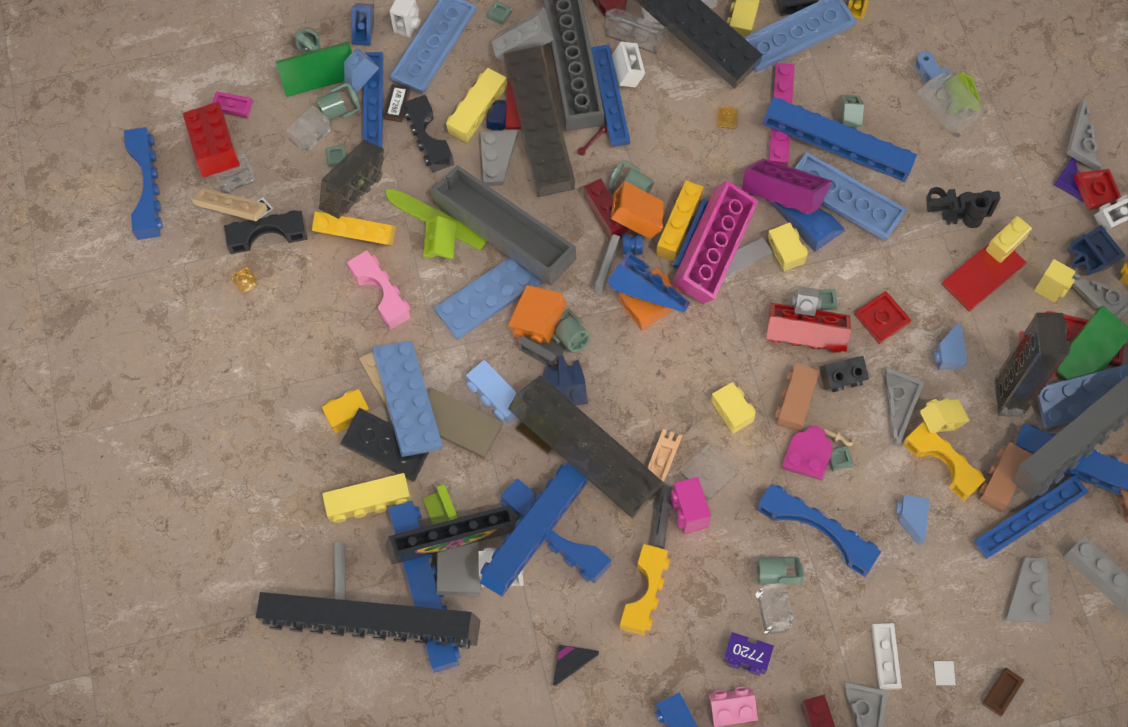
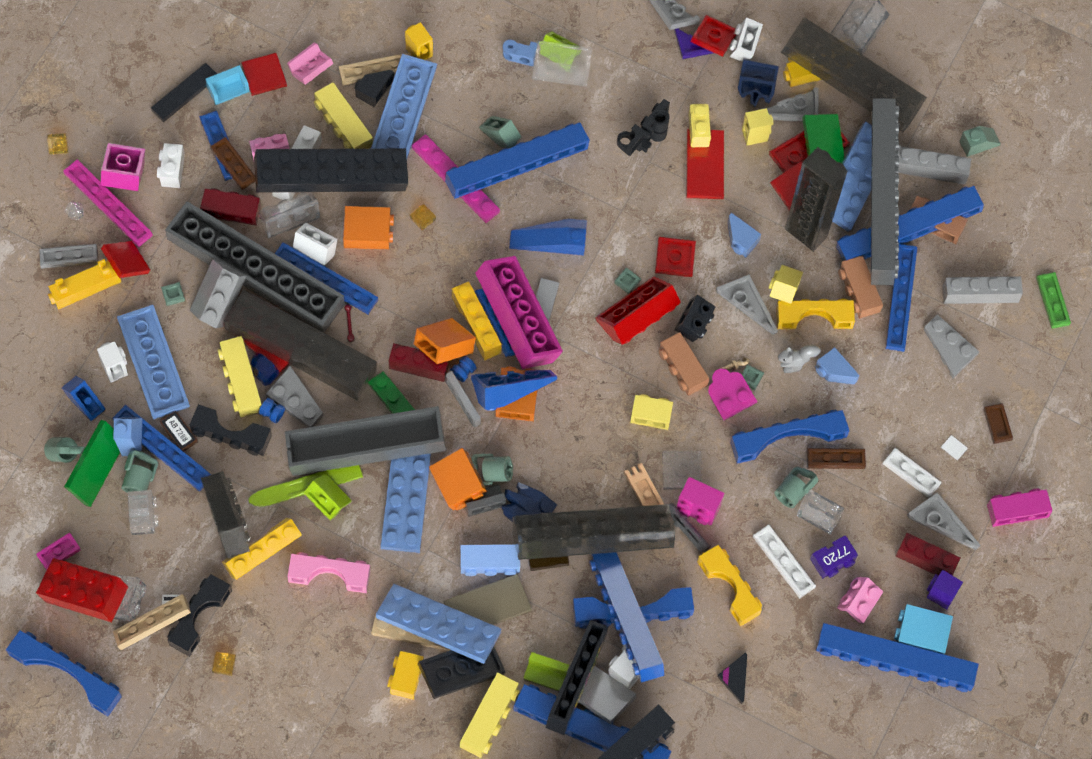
camera: 55 degrees left, 0 degrees up
(335, 155) = (181, 512): sand green tile -> none
(470, 146) = (272, 410): none -> blue wheel
(563, 213) = (389, 394): none -> green plate
(634, 177) = (414, 321): sand green piece -> none
(678, 88) = (368, 227): none -> orange brick
(707, 617) = (784, 561): none -> white tile
(785, 185) = (520, 227): magenta slope -> none
(787, 246) = (565, 269): light yellow brick -> none
(806, 301) = (619, 293): light grey brick -> none
(837, 583) = (835, 458): none -> reddish brown tile
(855, 200) = (563, 196): medium blue plate -> none
(888, 478) = (795, 359): none -> light grey animal

